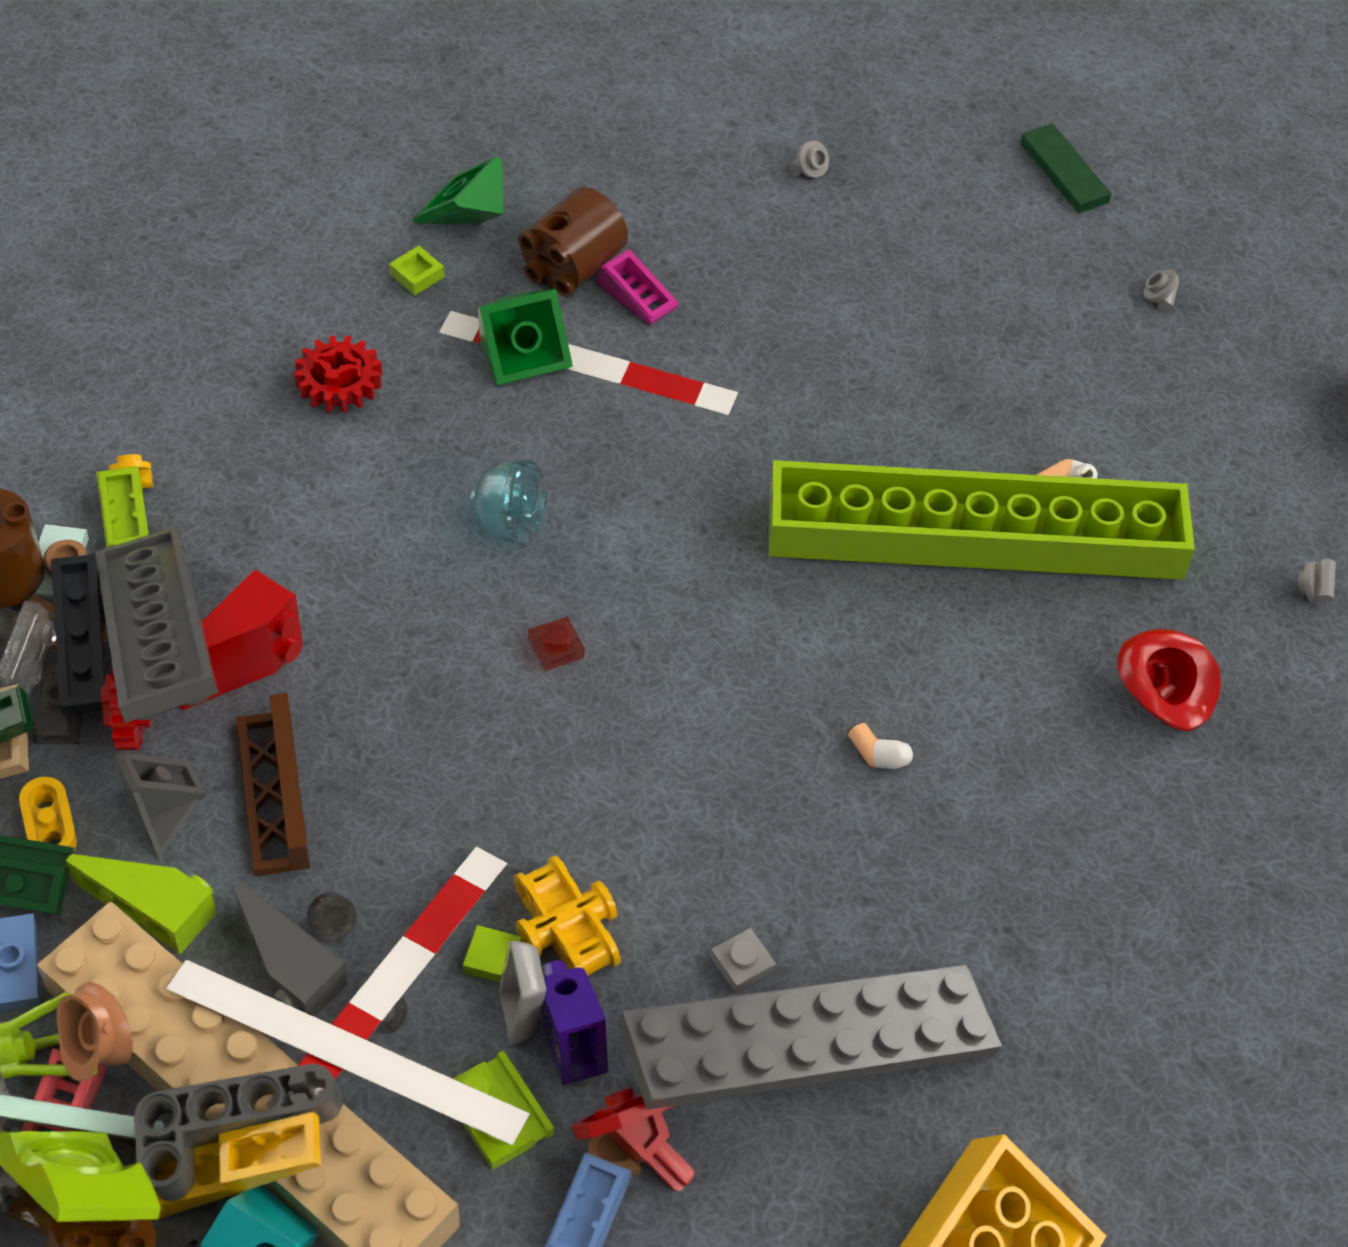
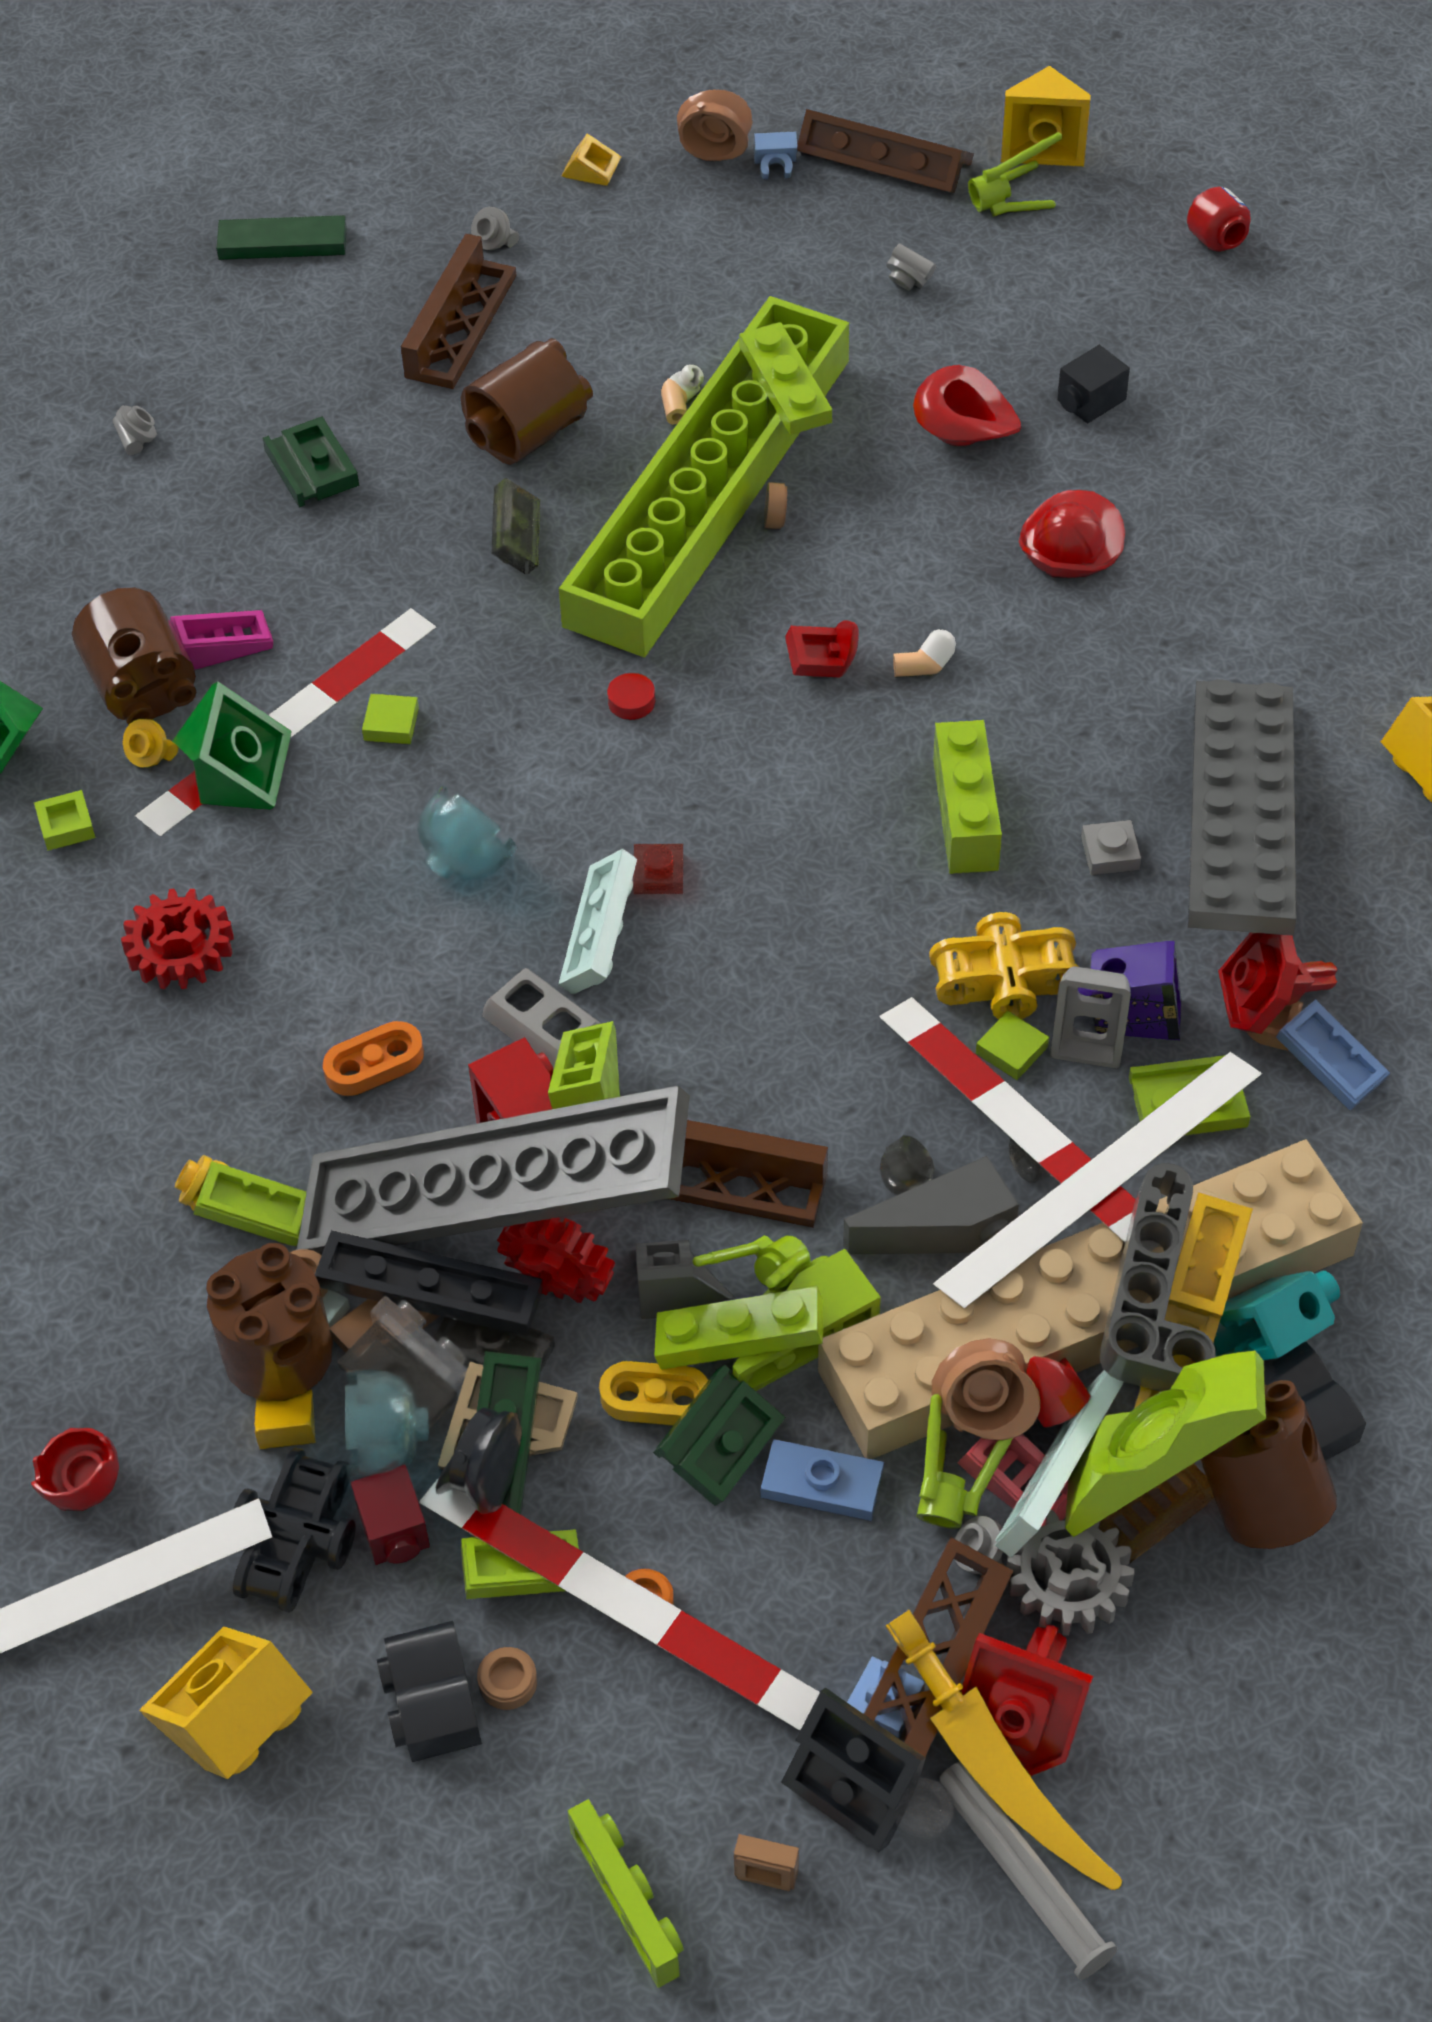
camera: 60 degrees left, 0 degrees up
(105, 845) = (739, 1328): none -> lime plate
(118, 1088) = (1059, 1390): none -> red plate
(189, 856) = (775, 1263): none -> lime plant
(287, 659) = (585, 1067): none -> lime slope
(289, 530) = (372, 1058): none -> orange plate
(390, 622) = (531, 1022): none -> light grey piece
(476, 622) = (598, 922): none -> light aqua plate
(512, 283) = (147, 743): none -> yellow plate
(616, 419) = (390, 718): none -> lime tile
(722, 561) = (631, 696): none -> red tile
(729, 826) = (967, 797): none -> lime brick
(836, 670) = (822, 649): none -> red plate
(840, 272) = (311, 461): none -> dark green plate
(848, 420) = (516, 526): none -> clear smoke plate
(967, 370) = (524, 402): none -> reddish brown cylinder
(977, 582) = (775, 505): none -> medium nougat tile
(1051, 292) = (438, 317): none -> reddish brown fence
(1086, 814) = (1073, 534): none -> red hat
(1092, 525) = (785, 378): none -> lime plate
(1269, 765) = (1093, 384): none -> black brick
(1289, 324) = (592, 162): none -> yellow slope

